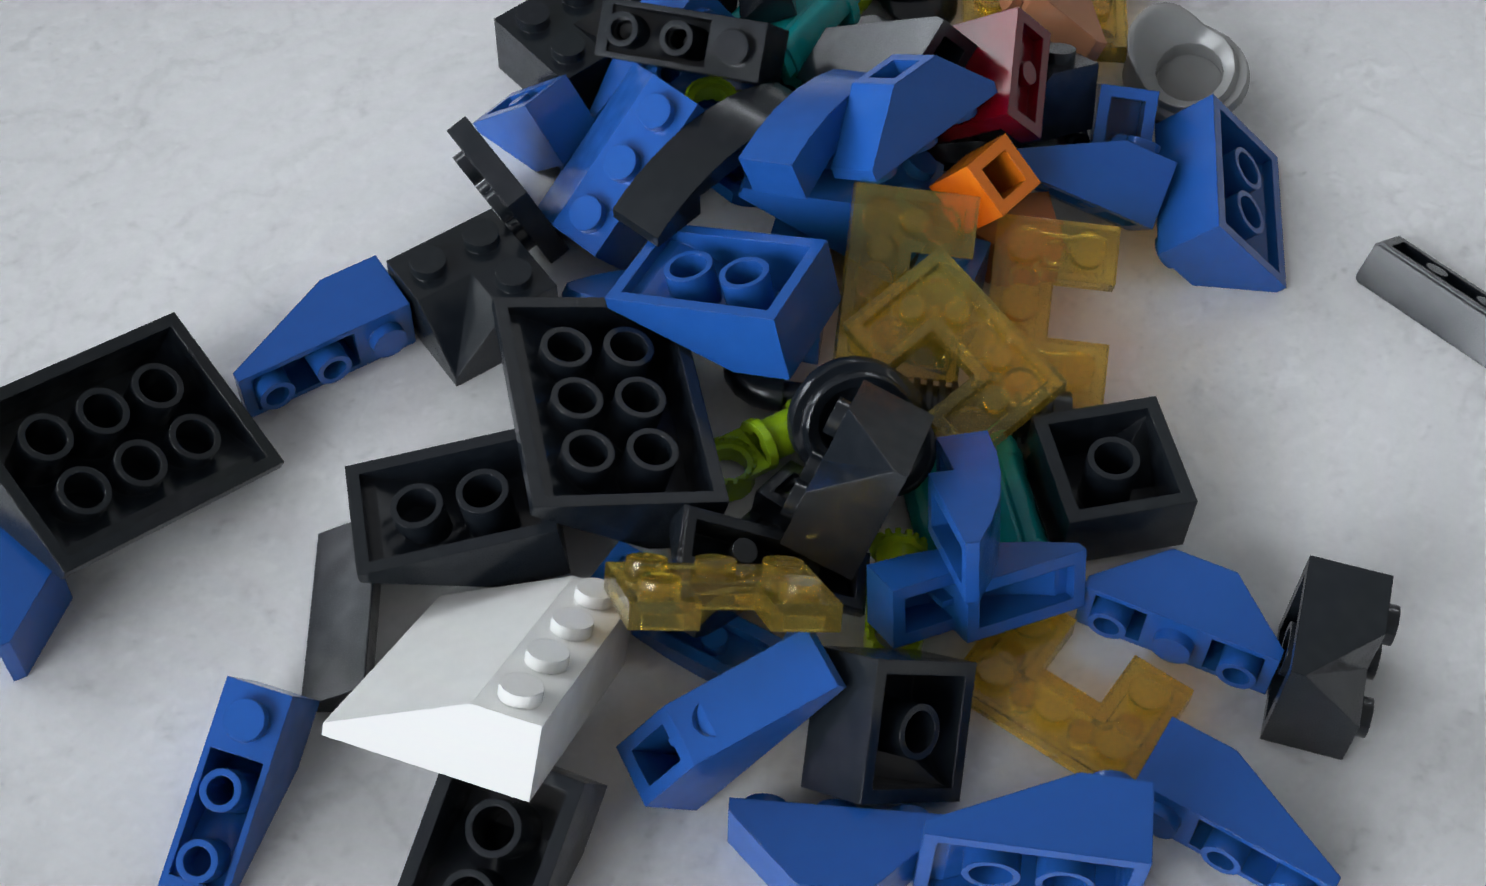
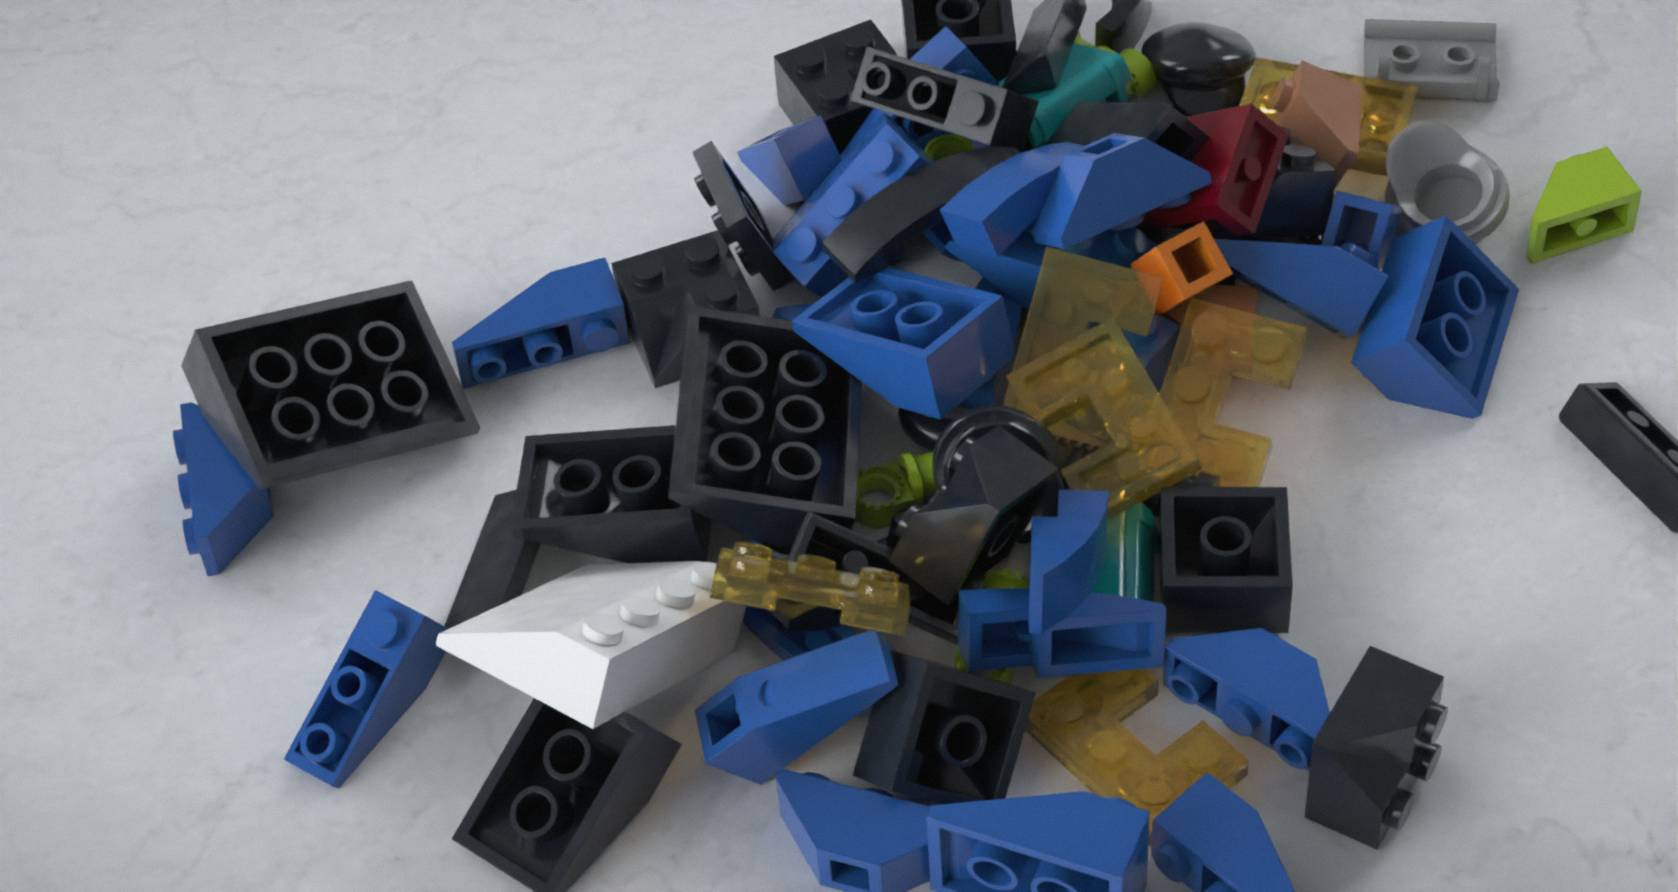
camera: 20 degrees right, 5 degrees down
(1314, 65) = (1582, 205): none -> lime slope

